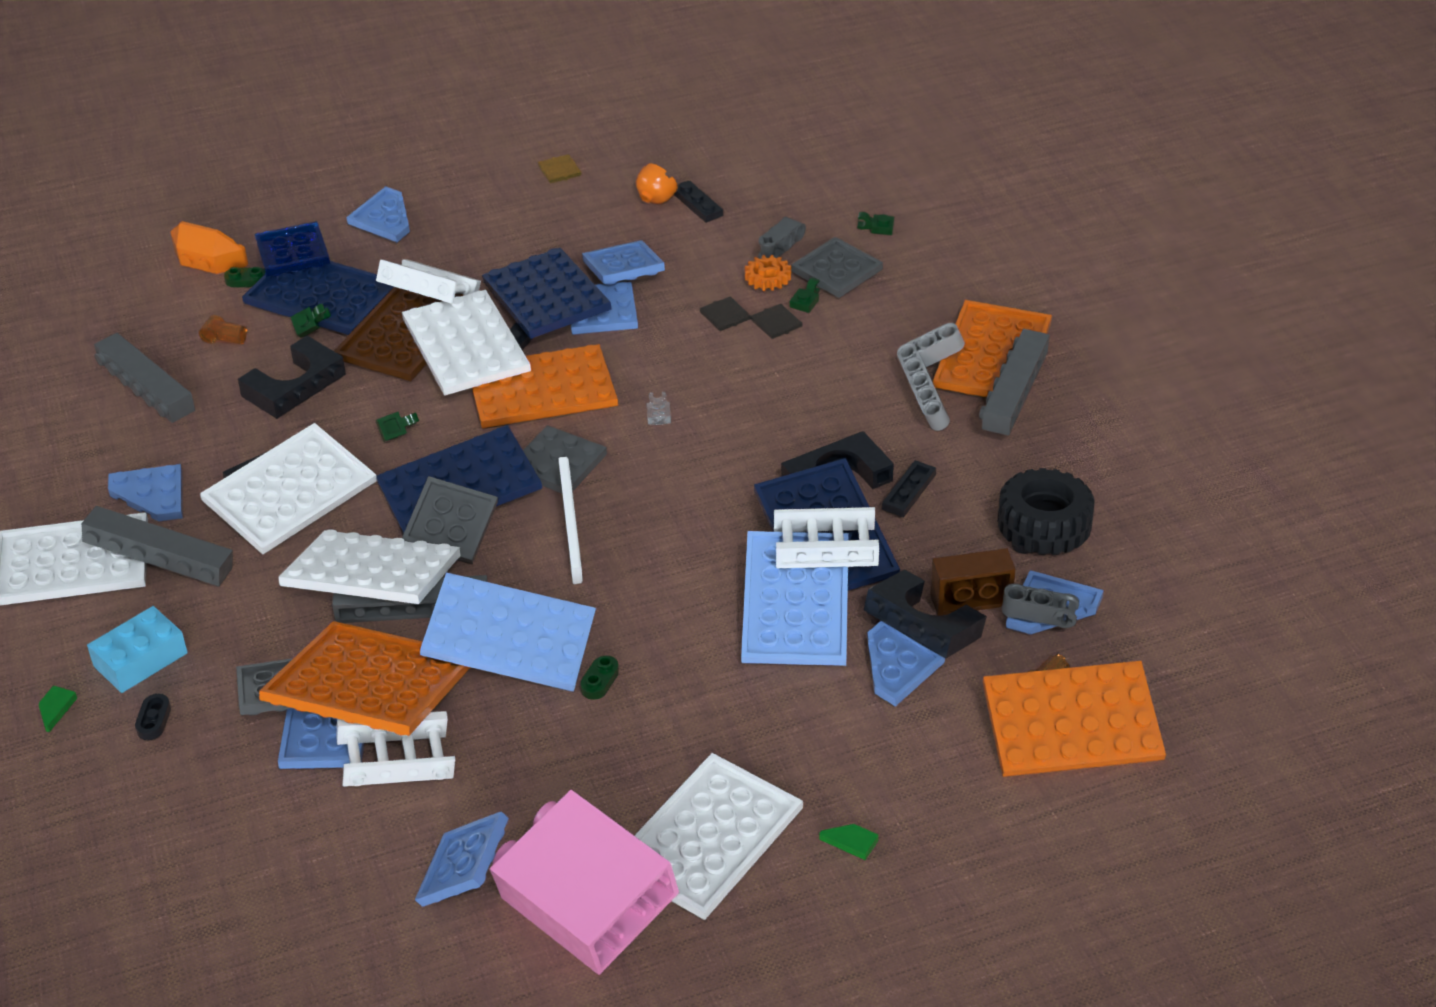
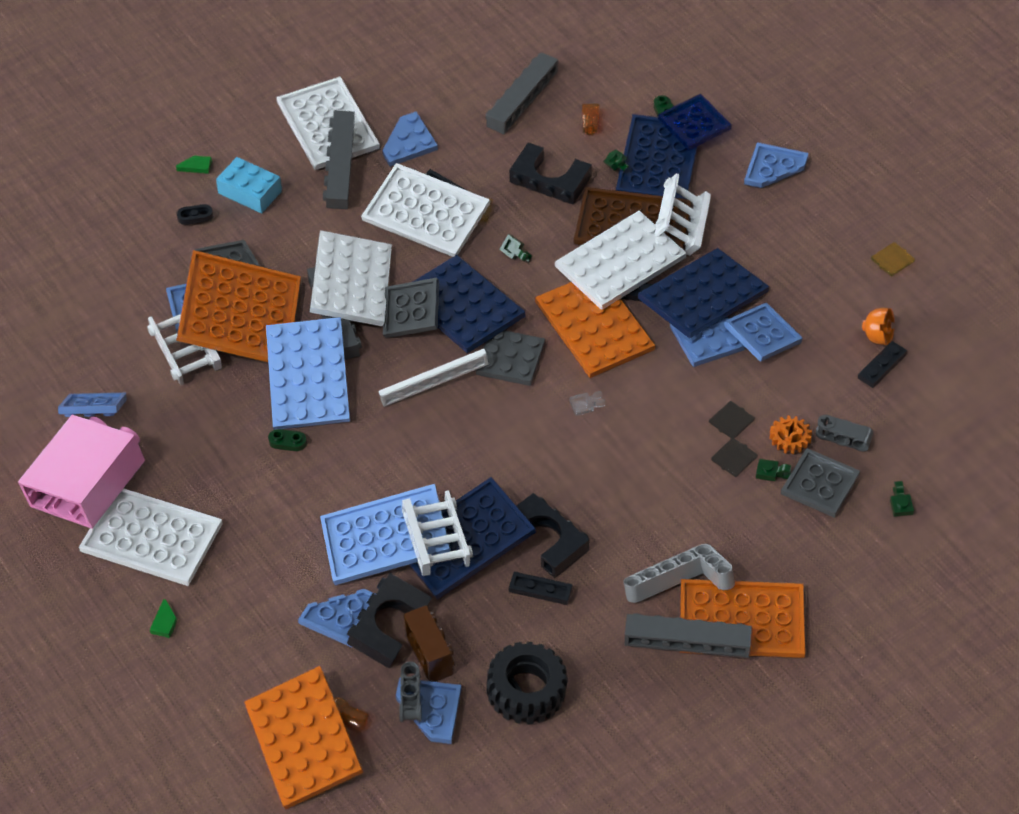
camera: 75 degrees right, 10 degrees up
(206, 248) = (678, 73): orange wedge -> none

